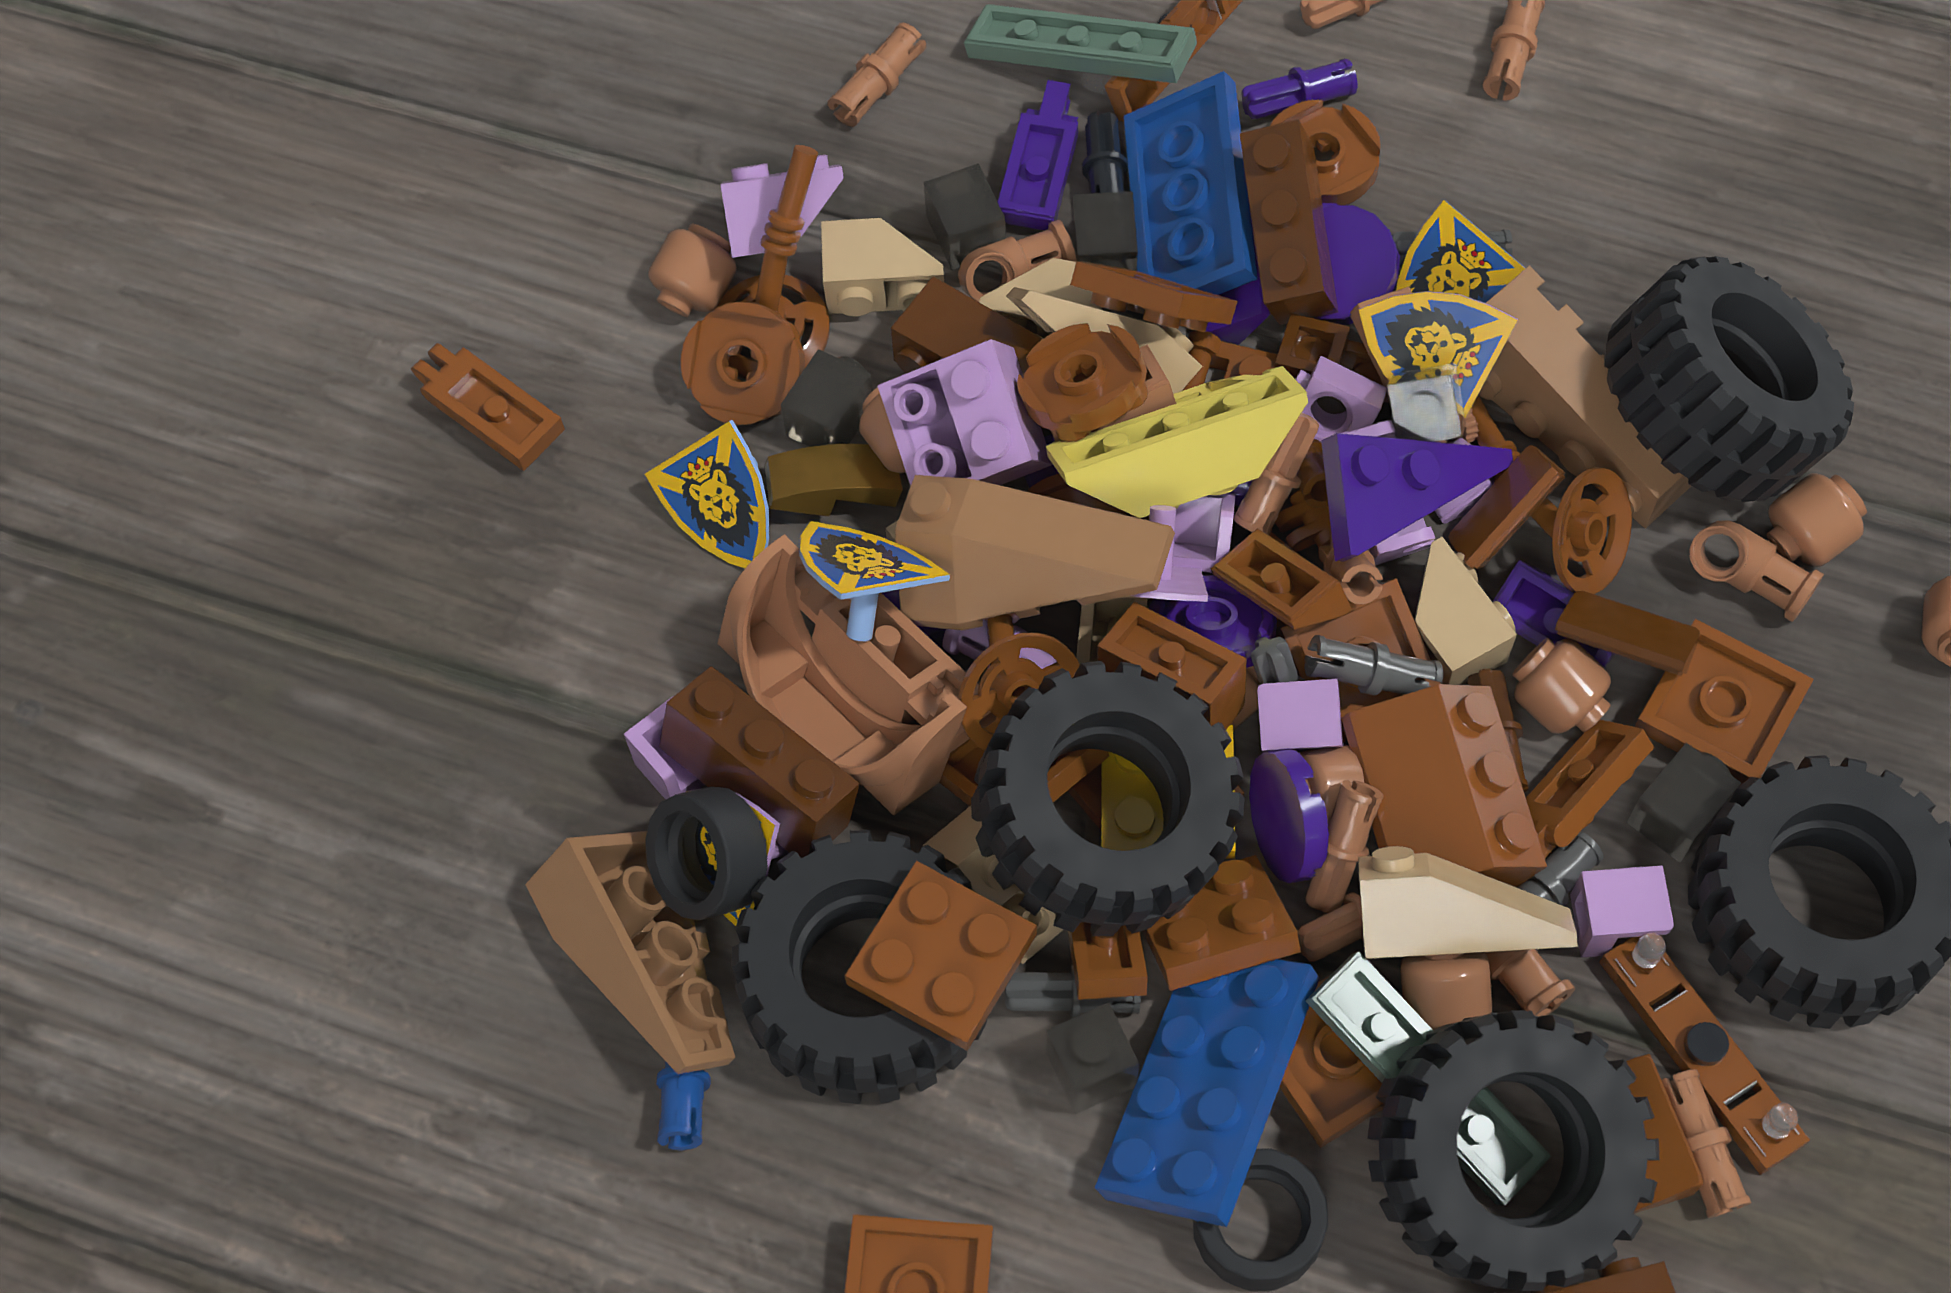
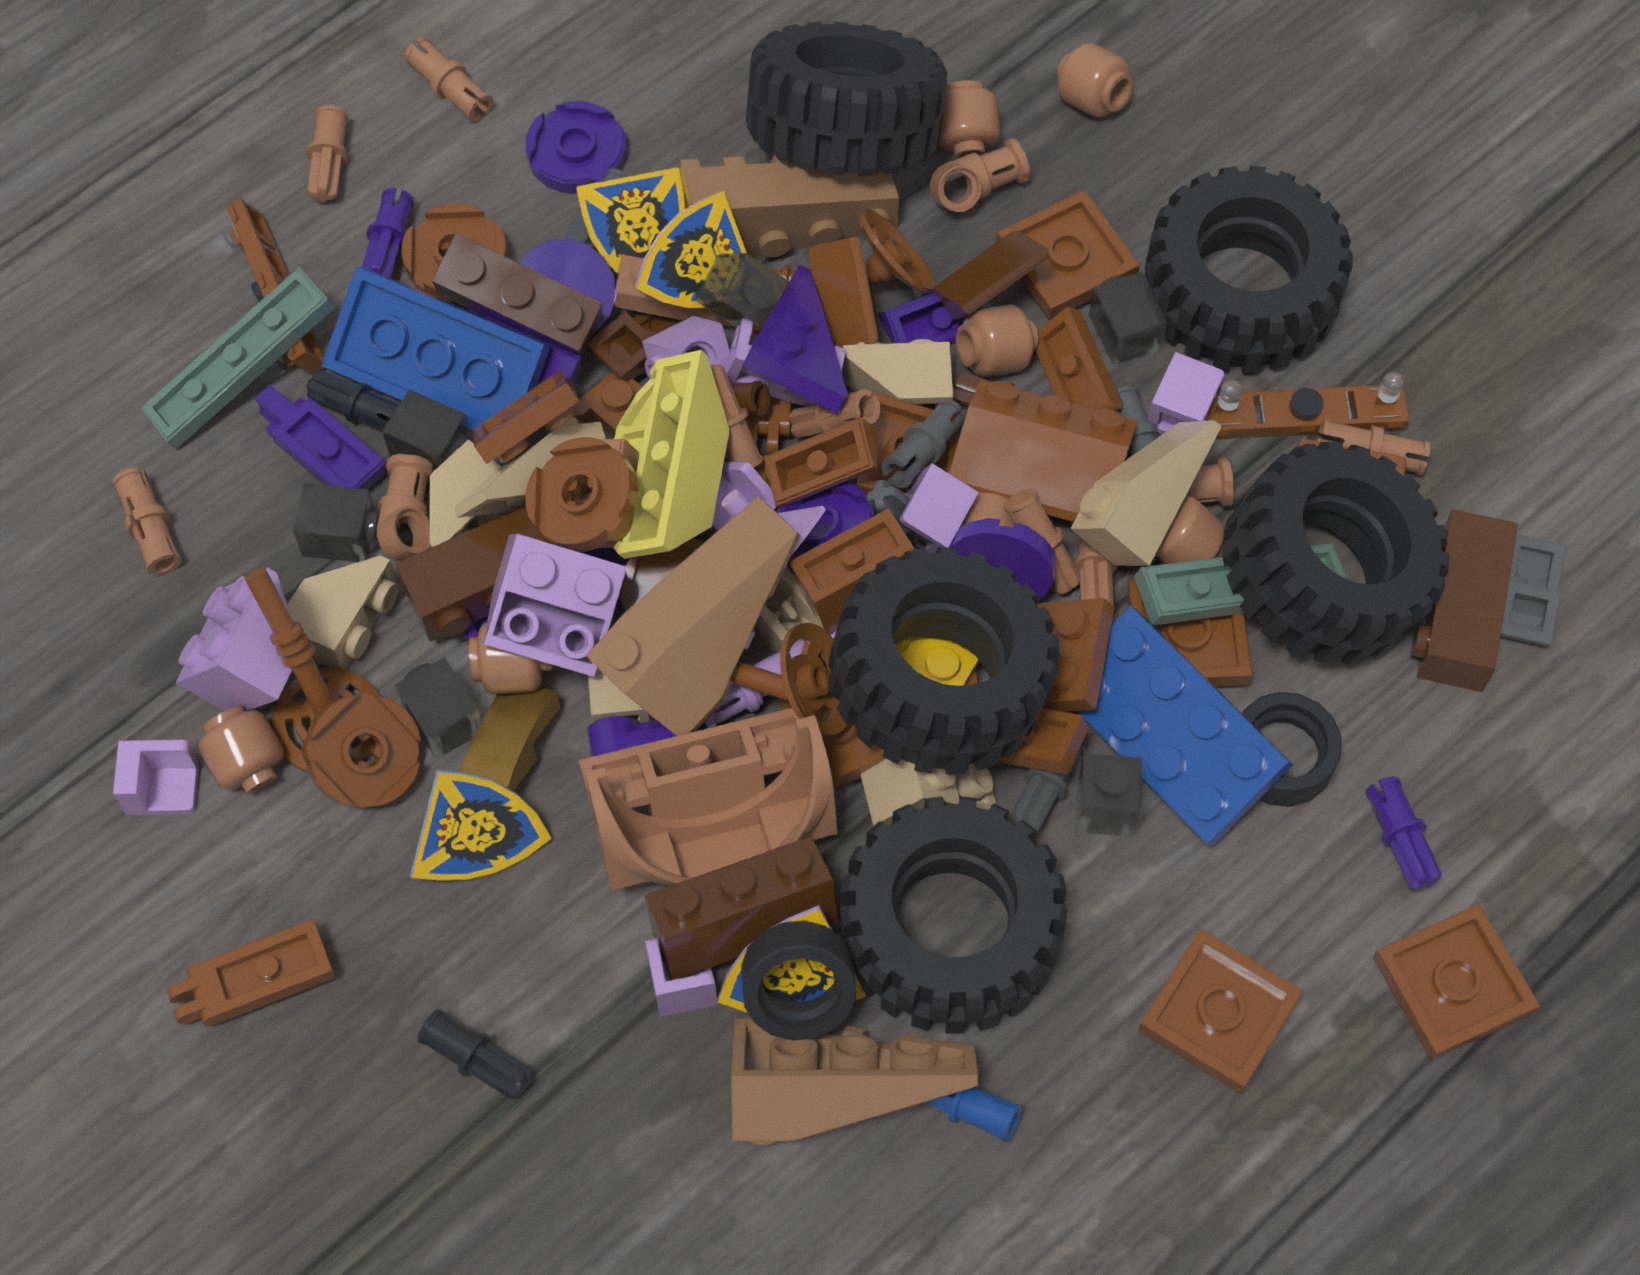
camera: 65 degrees left, 0 degrees up
(506, 622) = (474, 1055): none -> black axle
(627, 221) = (156, 777): none -> lavender panel
(860, 568) = (649, 729): shield -> none
(941, 955) = (998, 839): dark orange plate -> none
(1521, 191) = (575, 146): none -> dark purple tile

